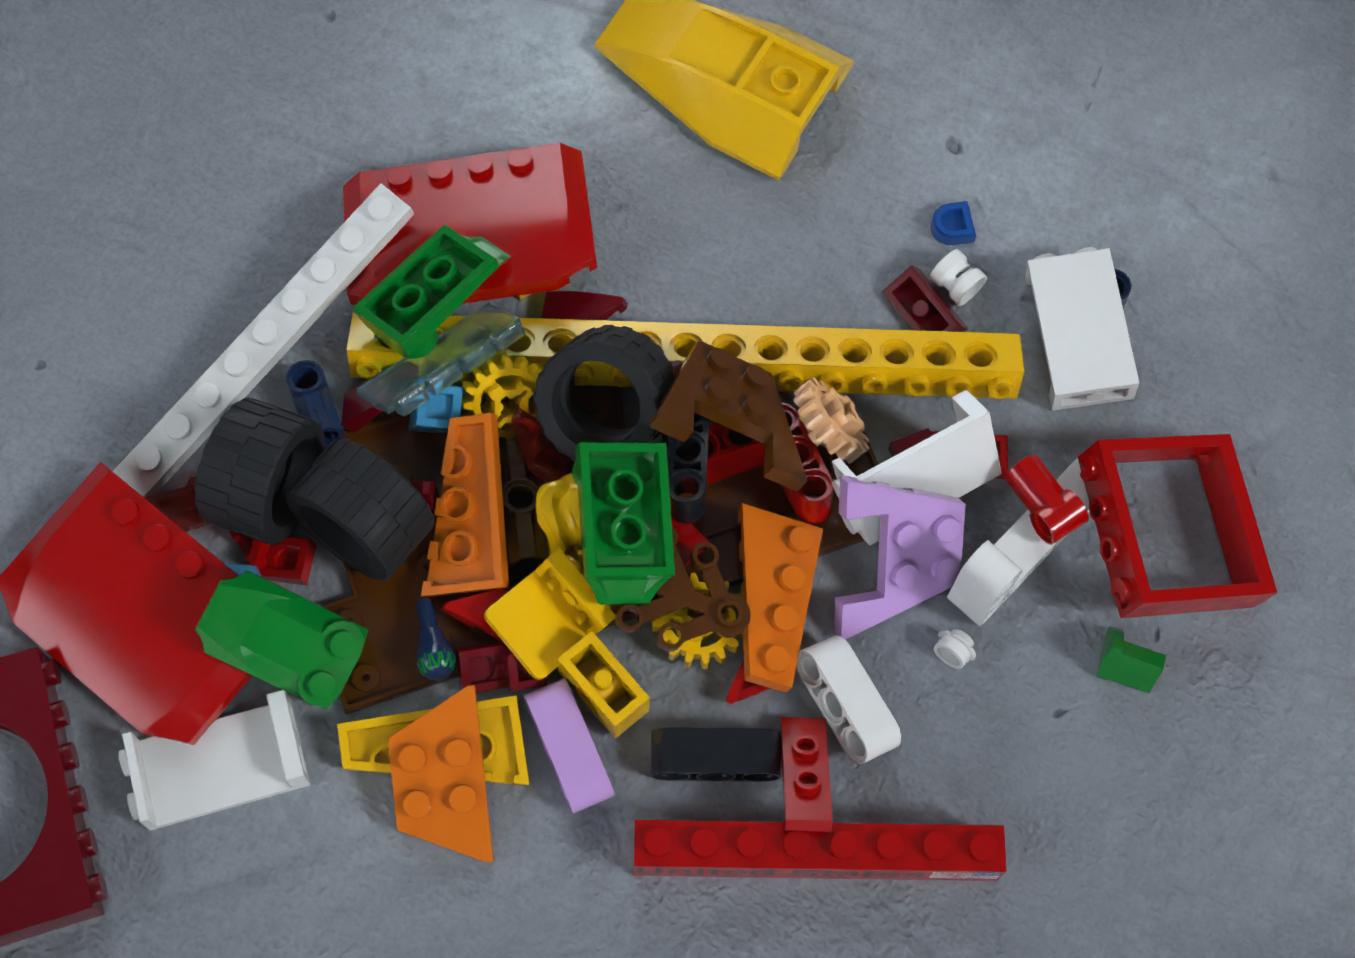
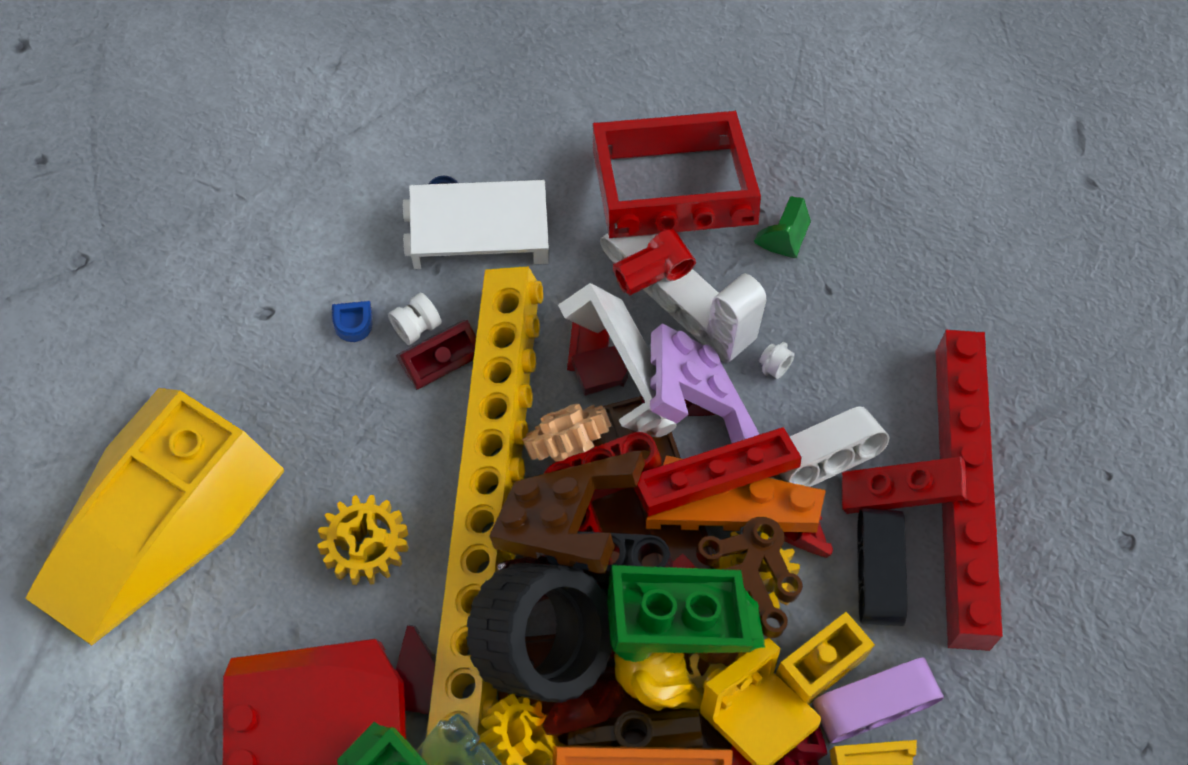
camera: 85 degrees left, 5 degrees down
(715, 270) = (351, 526): none -> yellow gear
(797, 567) = (717, 471): none -> red plate

